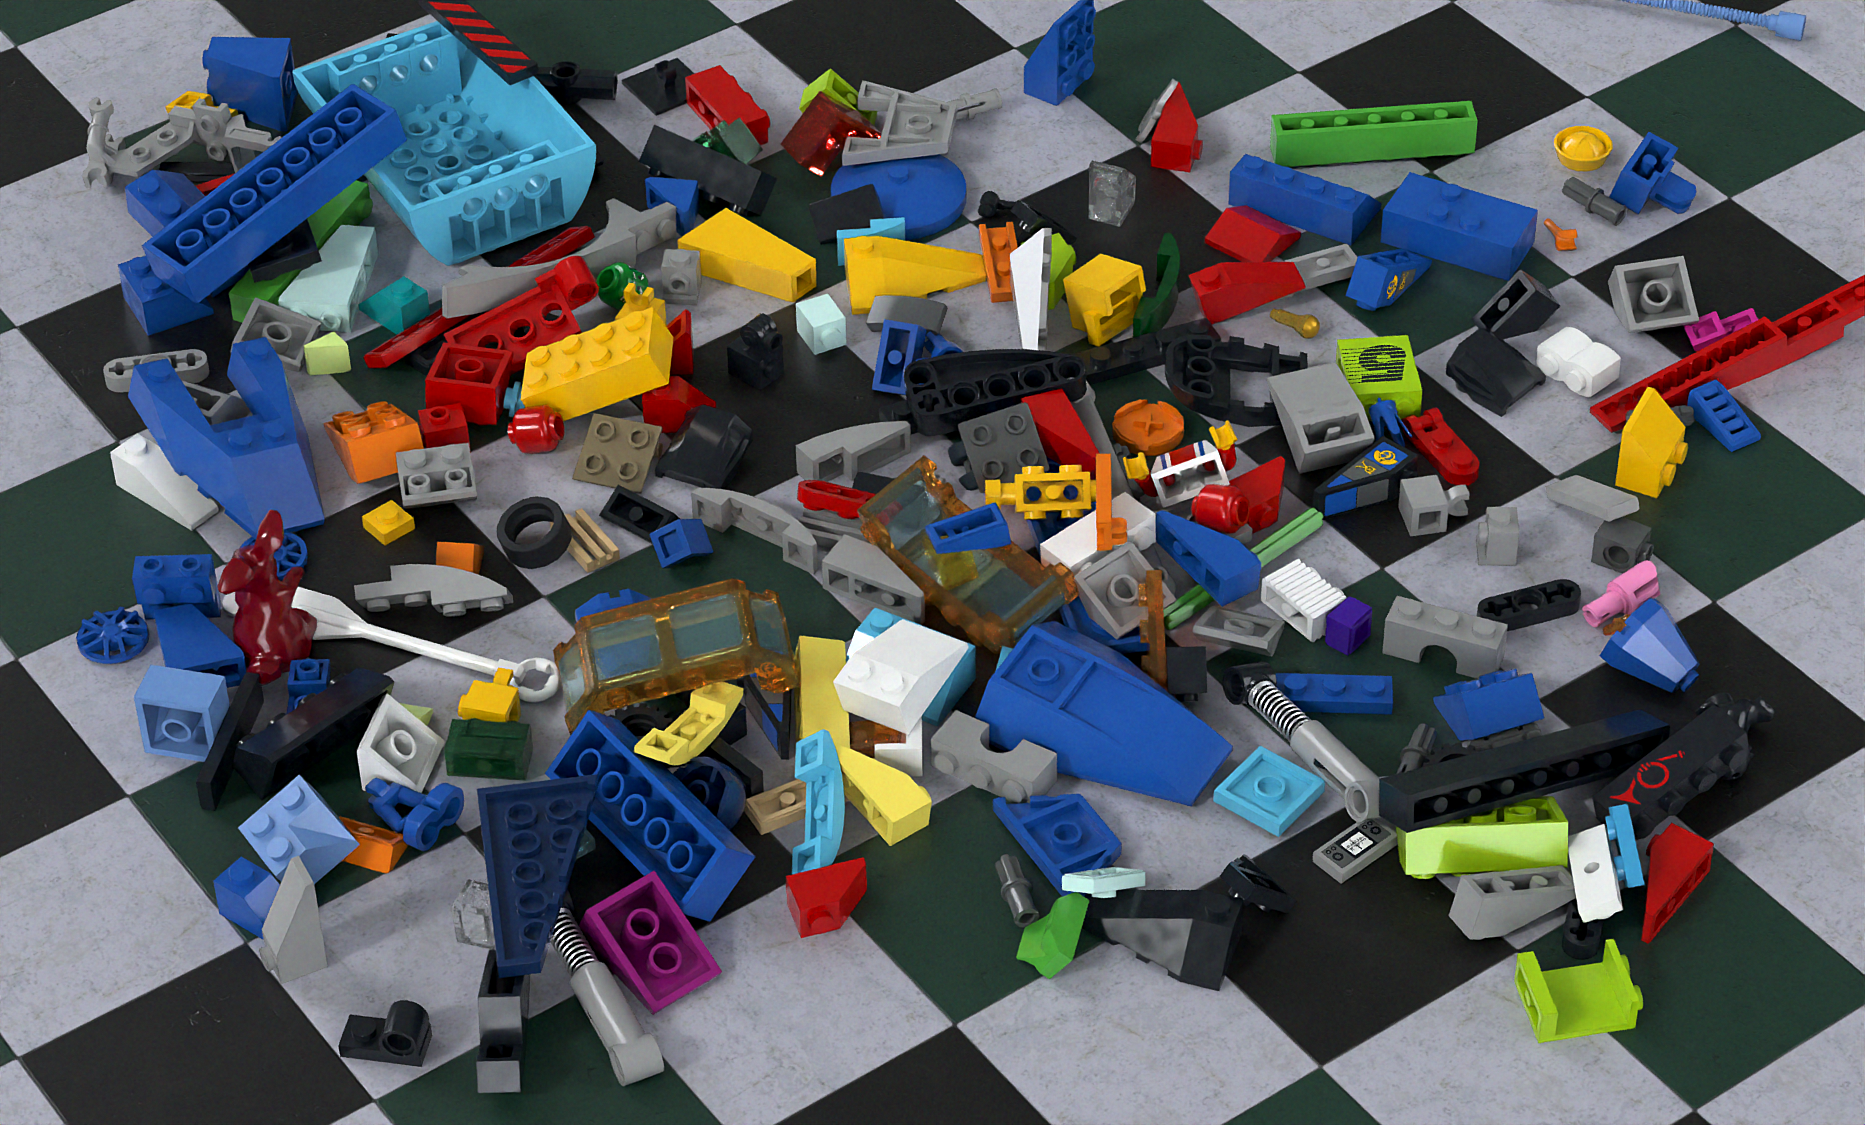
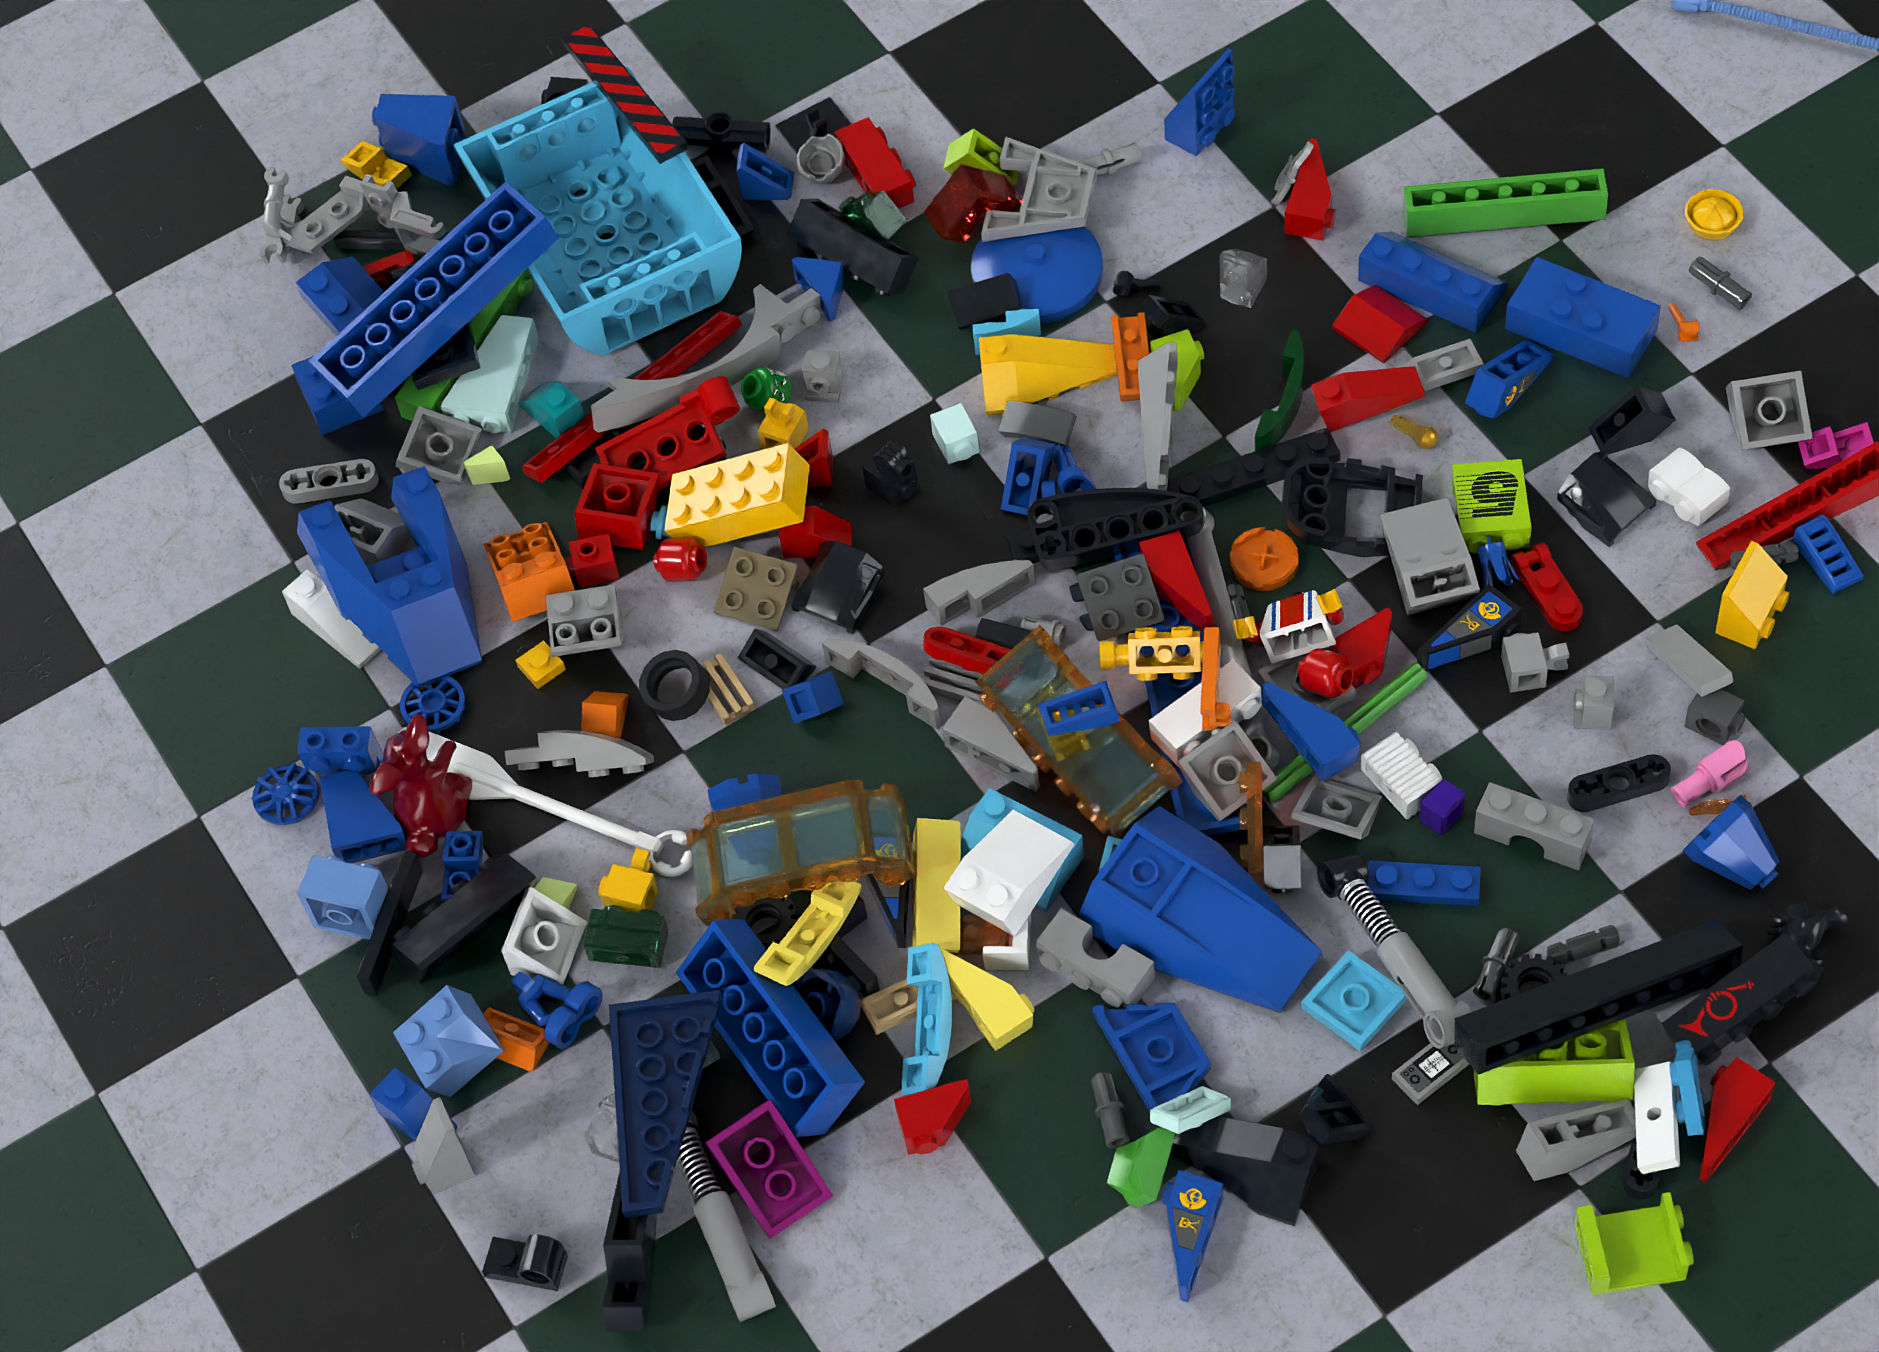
camera: 10 degrees right, 15 degrees up
(610, 118) = (762, 177): none -> blue slope
(672, 102) = (821, 159): none -> light grey hair
(750, 257) = (887, 350): yellow slope -> none
(1104, 297) = (1227, 408): yellow plate -> none
(1109, 980) = (1191, 1216): none -> slope
(1490, 704) = (1571, 905): blue slope -> none
(1649, 177) = (1779, 258): blue brick -> none

